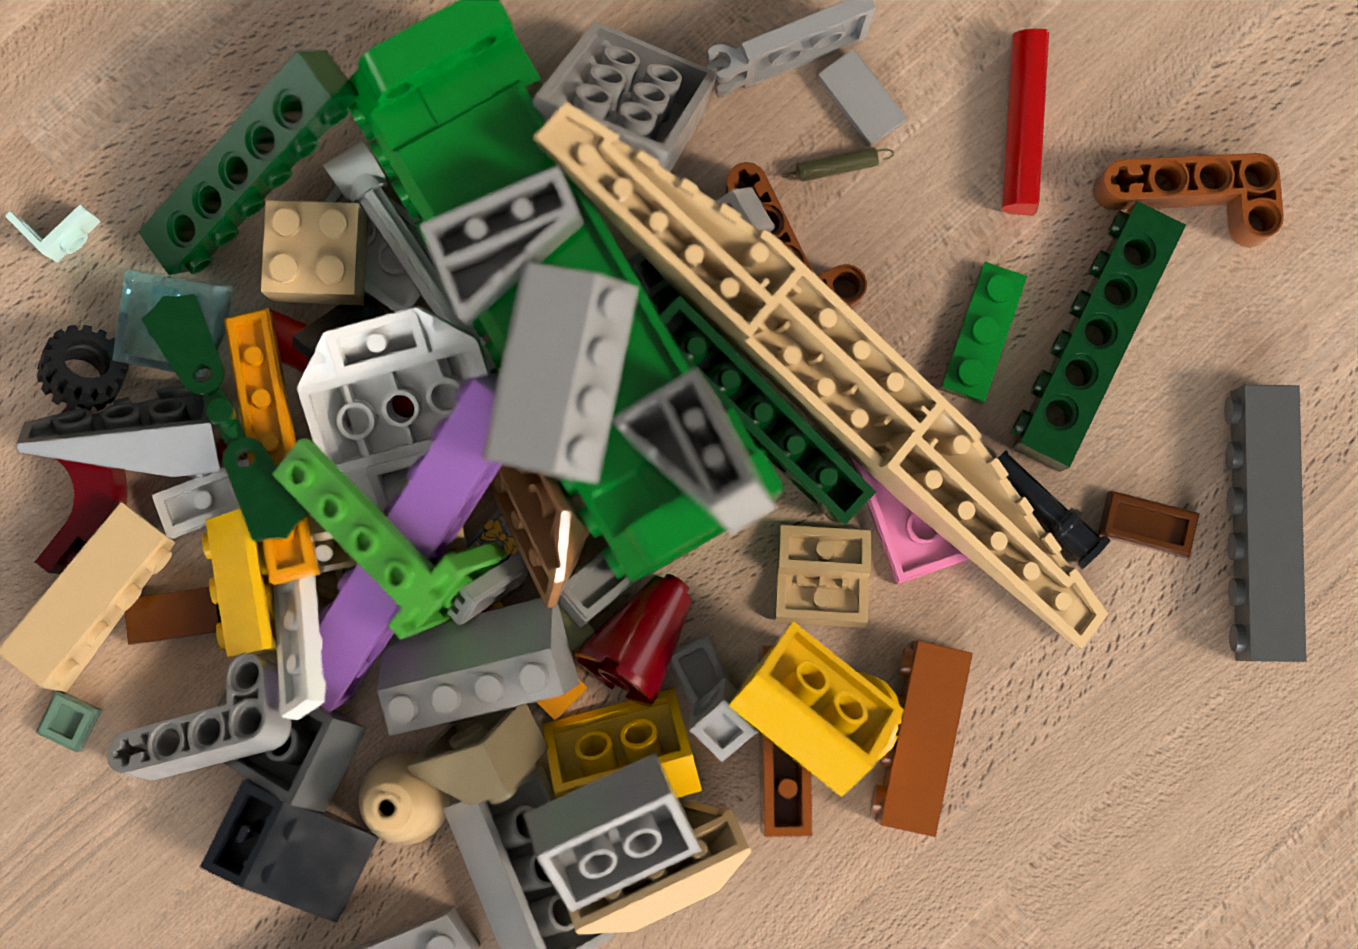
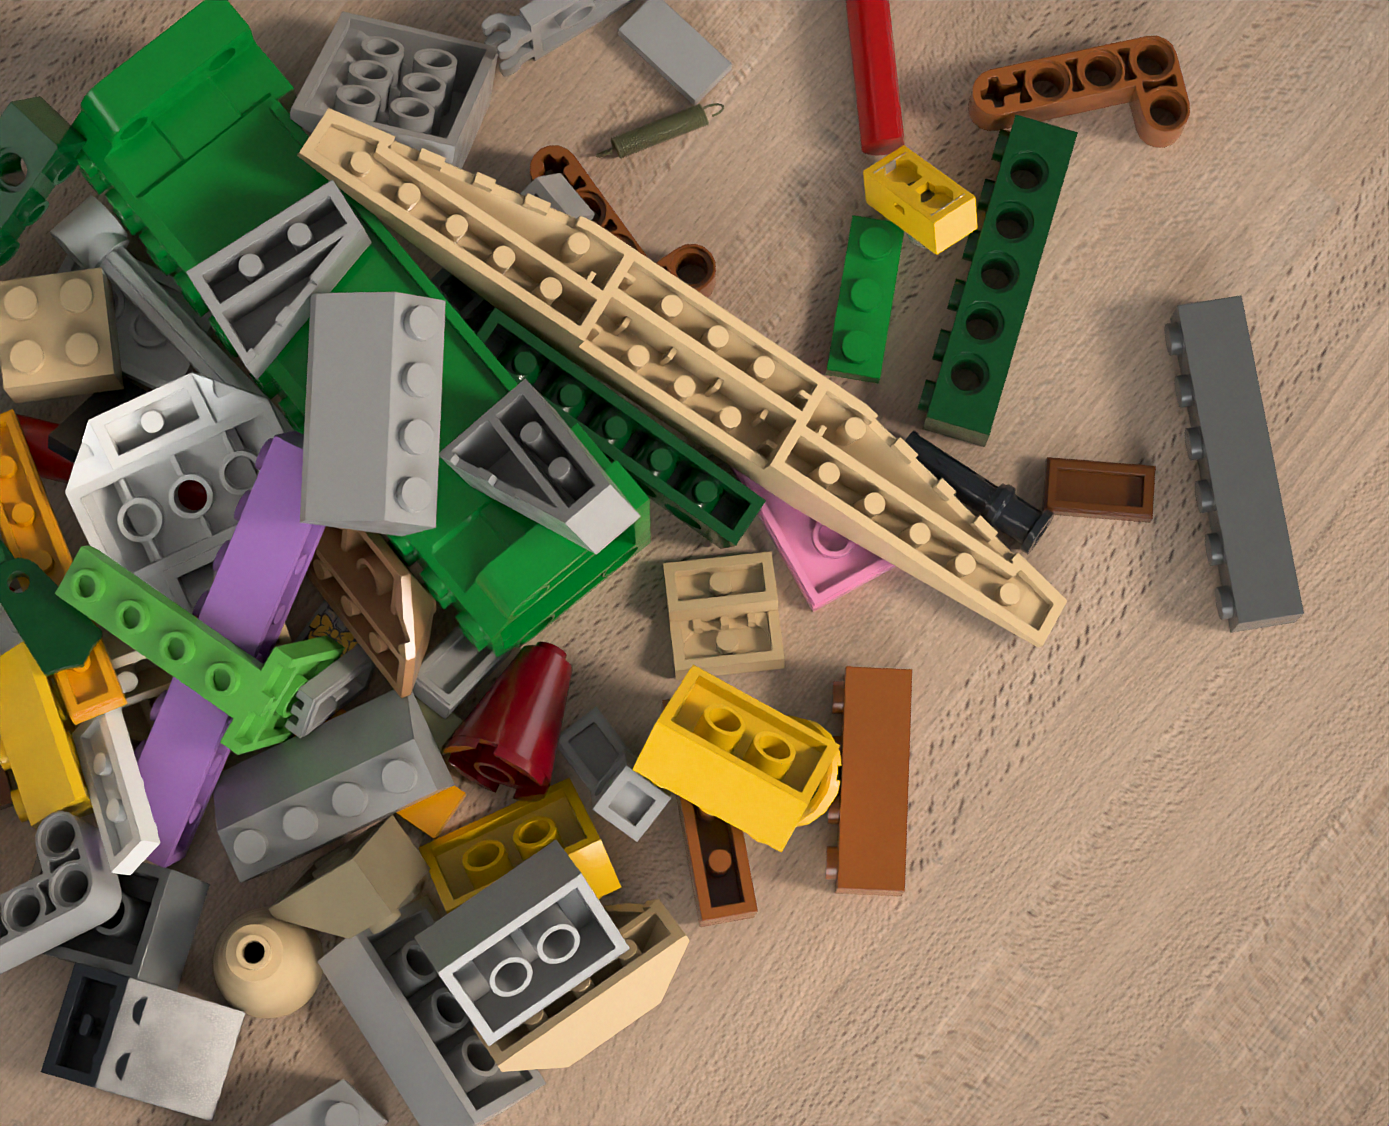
camera: 10 degrees left, 5 degrees down
(1045, 259) = (920, 200): none -> yellow piece

